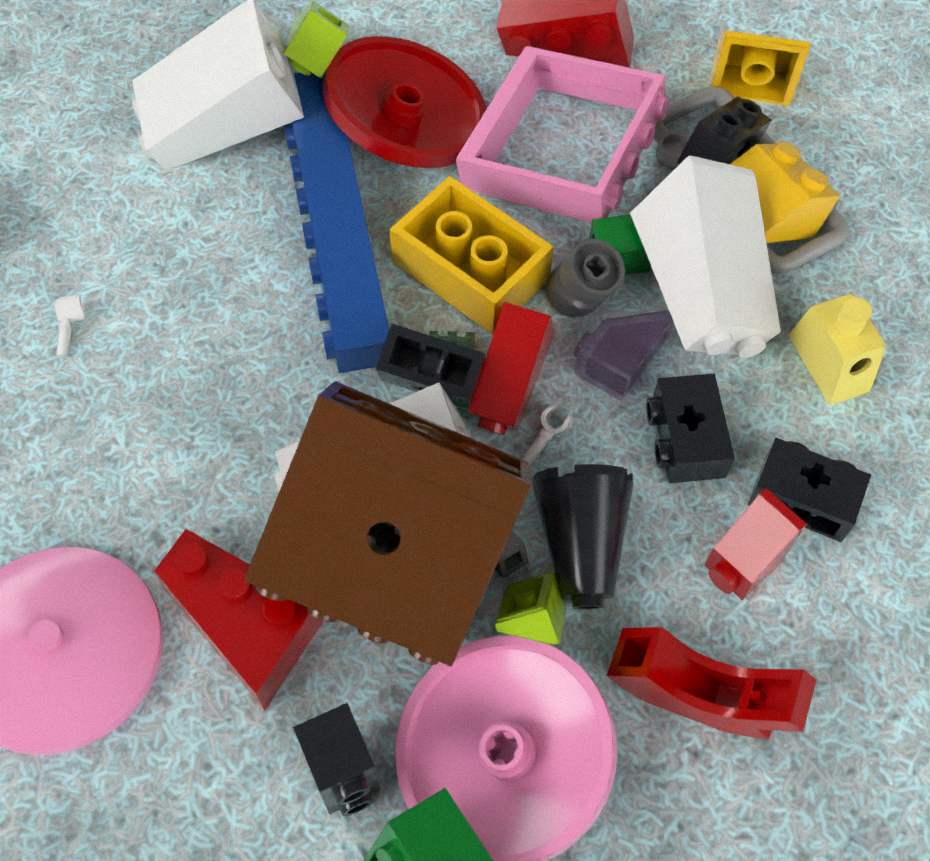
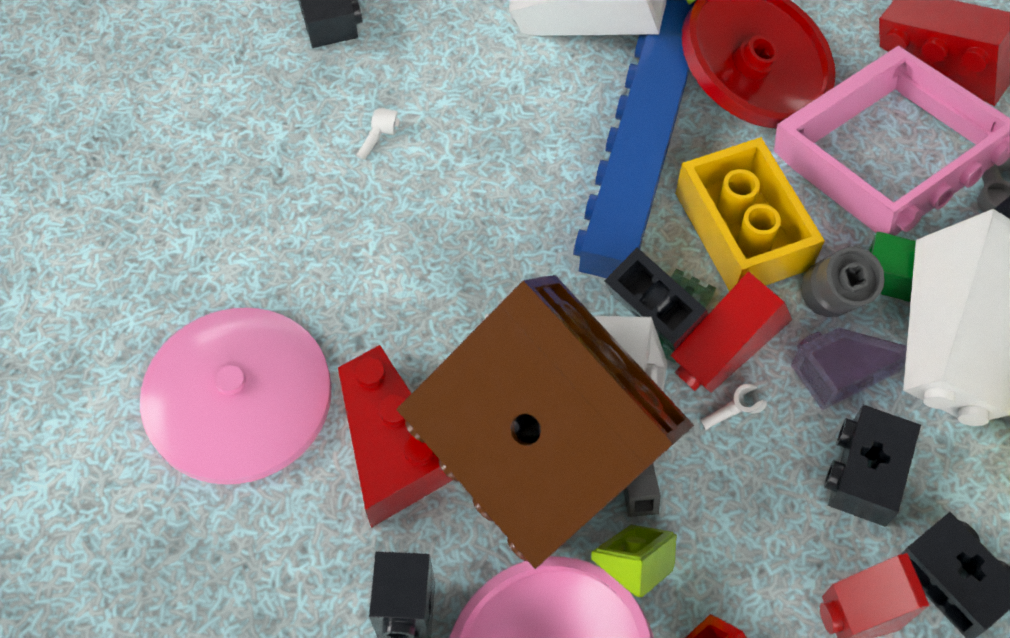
camera: 30 degrees right, 0 degrees up
(584, 528) = (722, 508): black cone -> none

